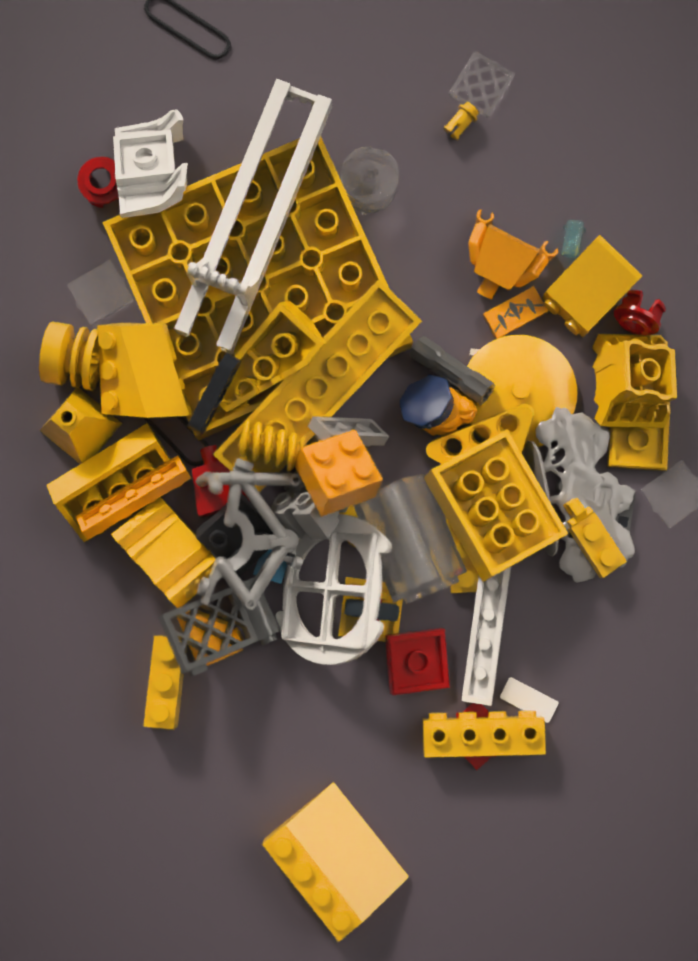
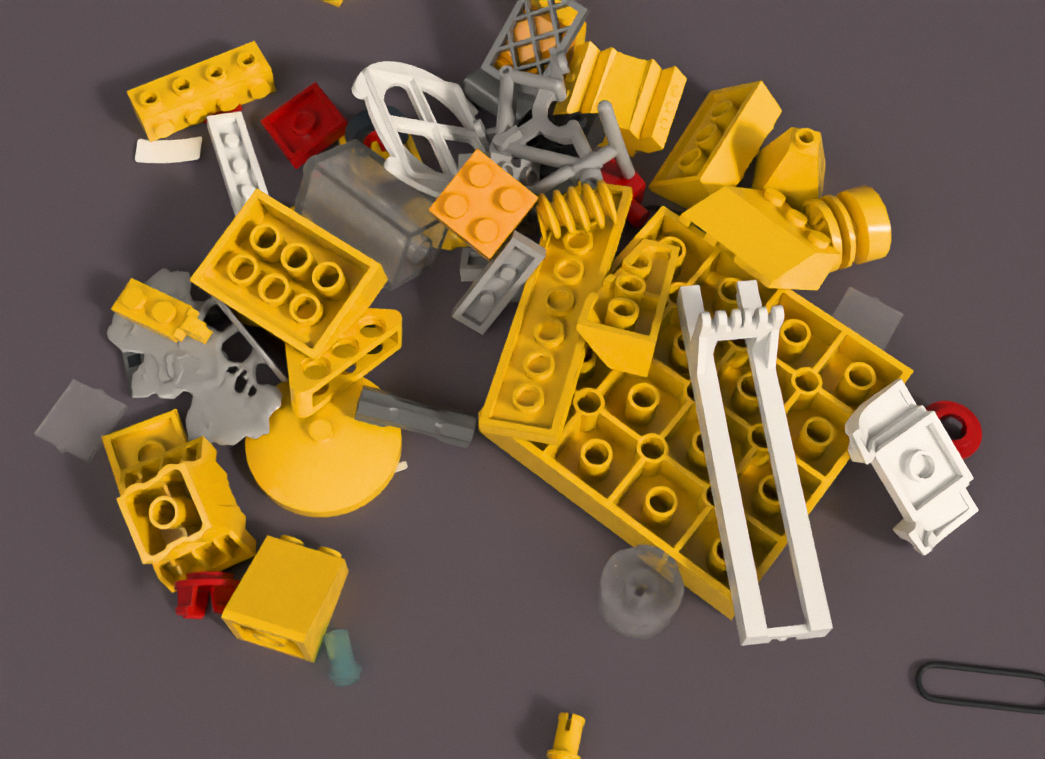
camera: 150 degrees right, 20 degrees down
(132, 497) = (687, 129): light orange plate -> none
(214, 394) = (668, 236): black beam -> none
(436, 406) = (415, 366): dark blue piece -> none
(504, 258) = (418, 580): light orange torso -> none
(515, 313) = (373, 531): light orange tile -> none

